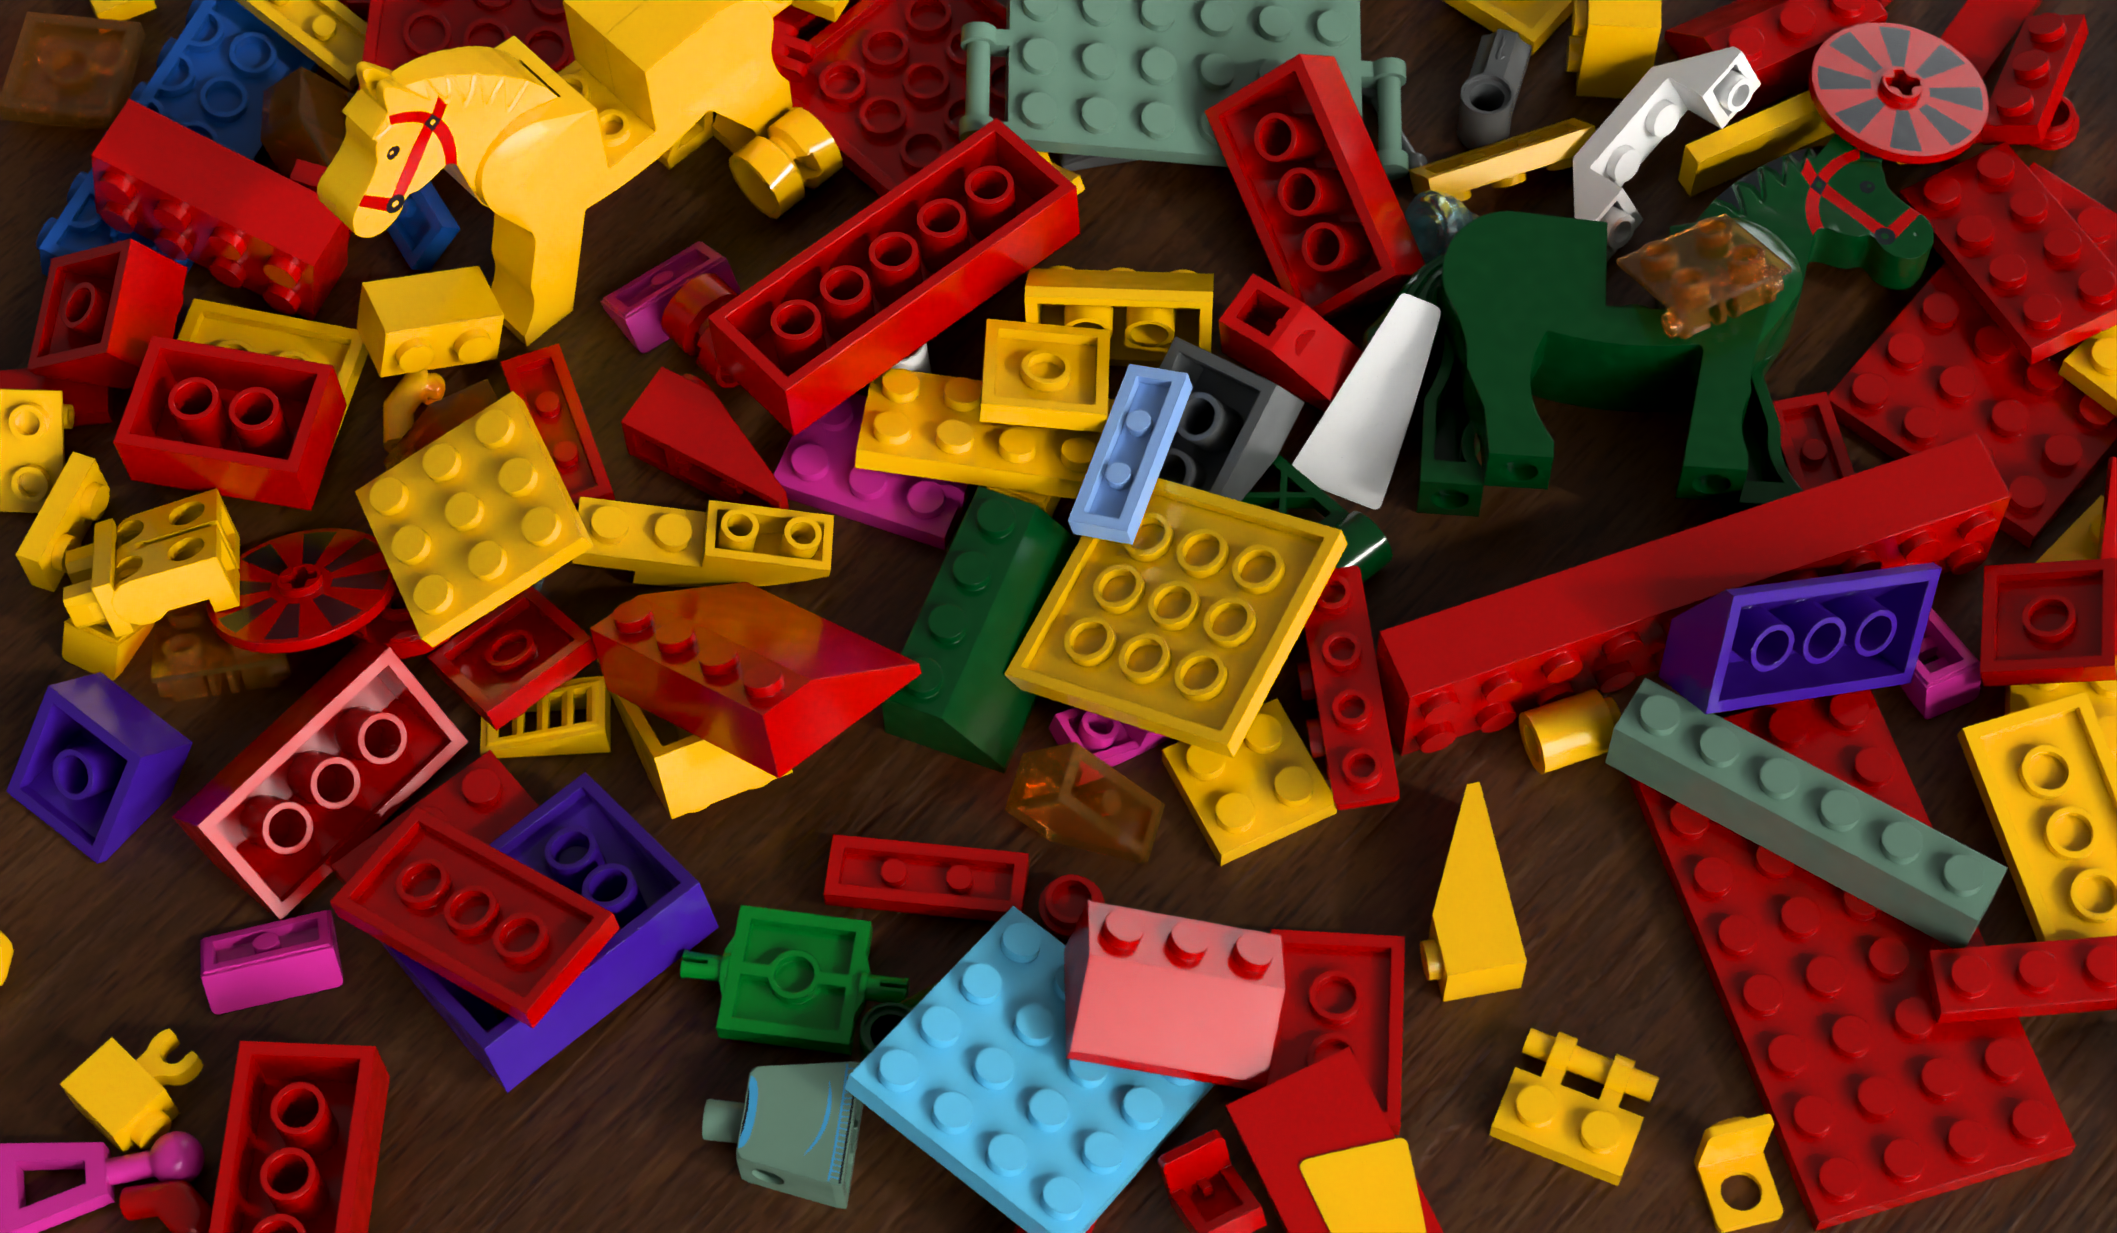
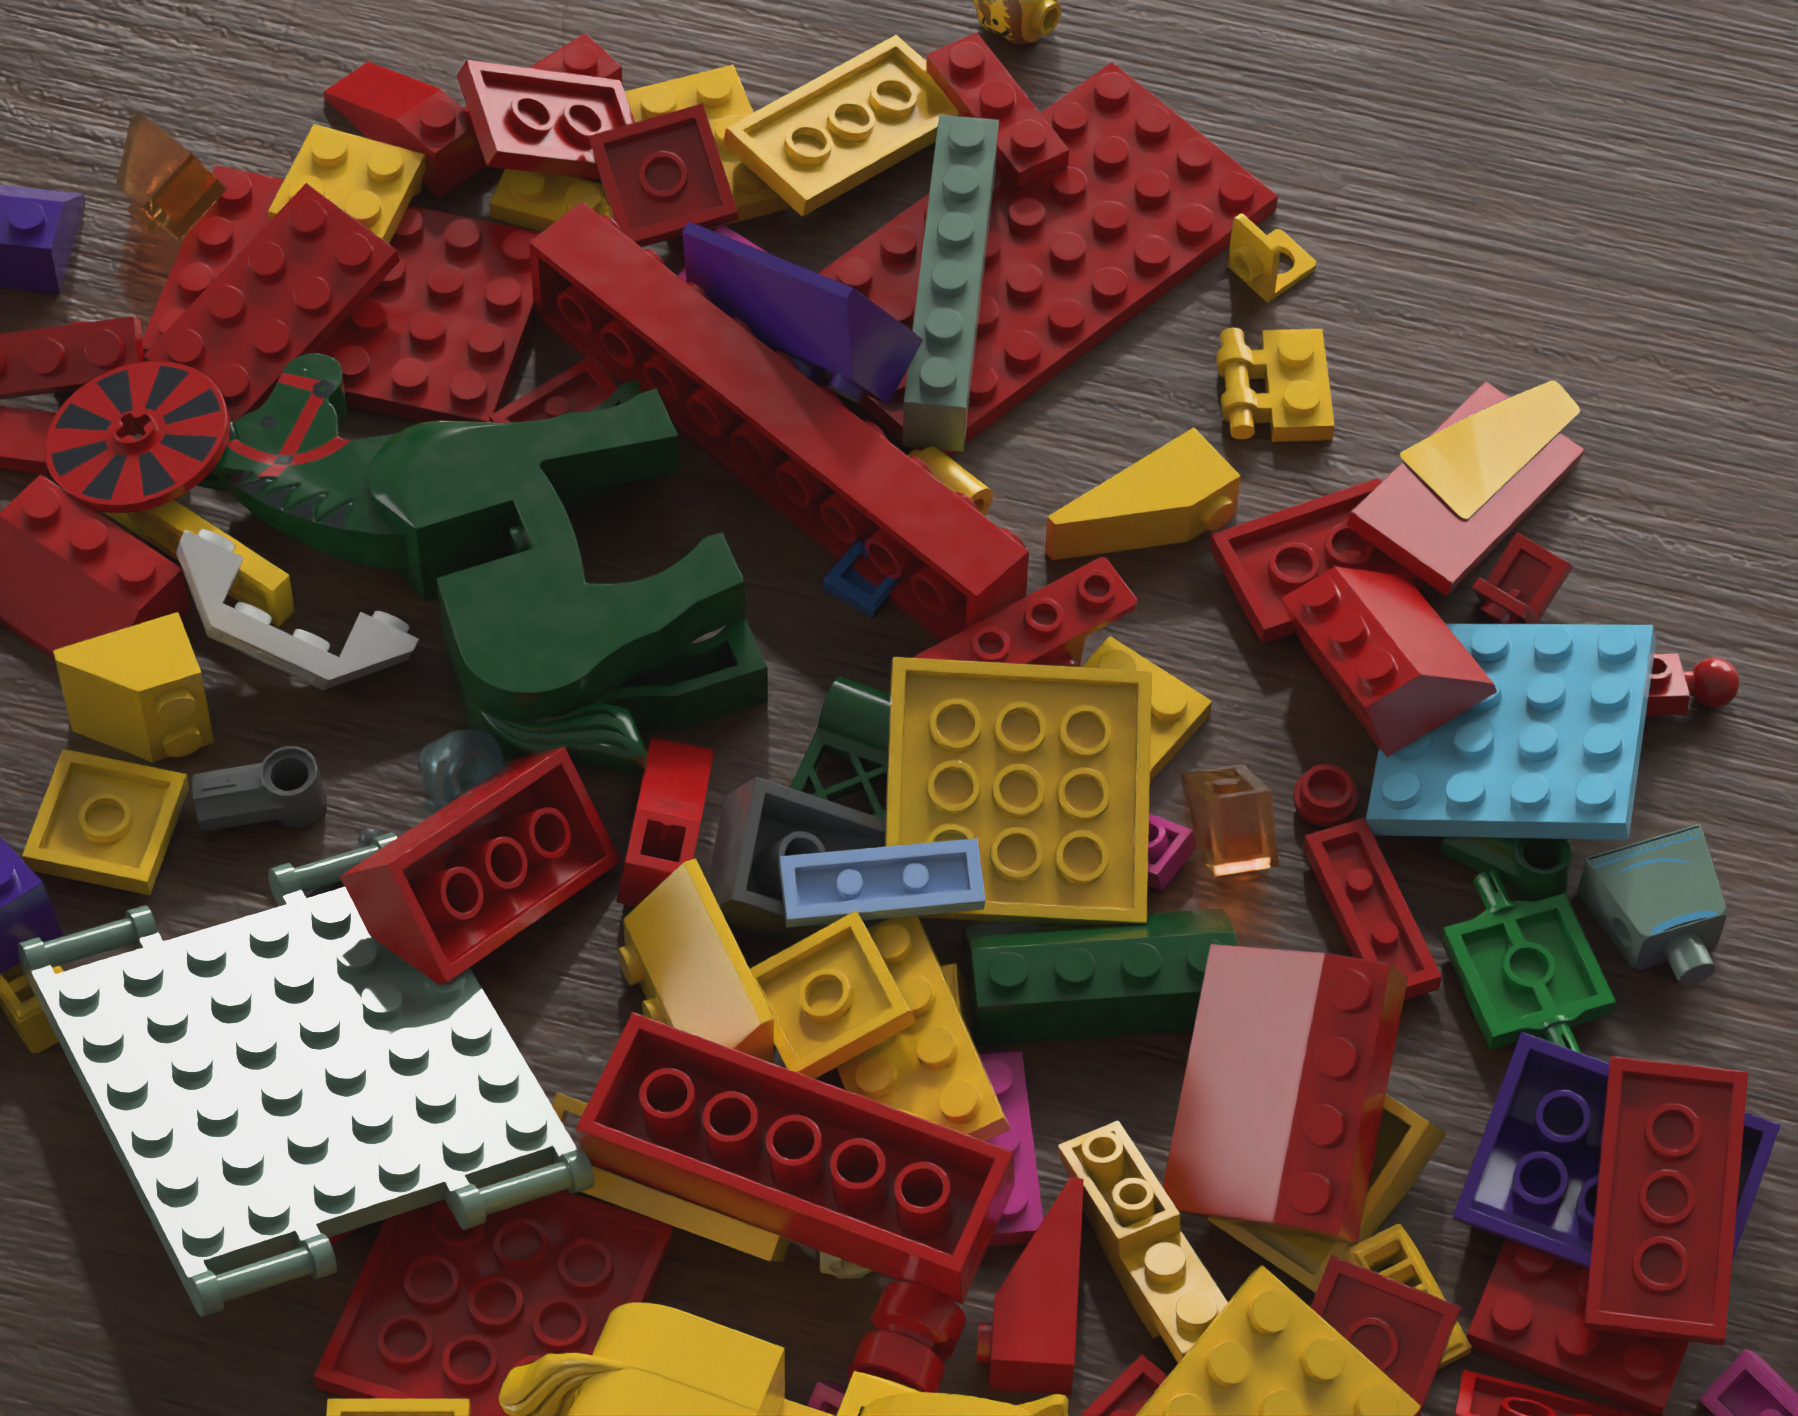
camera: 120 degrees left, 5 degrees down
(1367, 420) = (706, 743): white sticker -> none
(1504, 161) = (346, 753): yellow plate -> none
(1706, 274) = (470, 469): clear orange hinge -> none

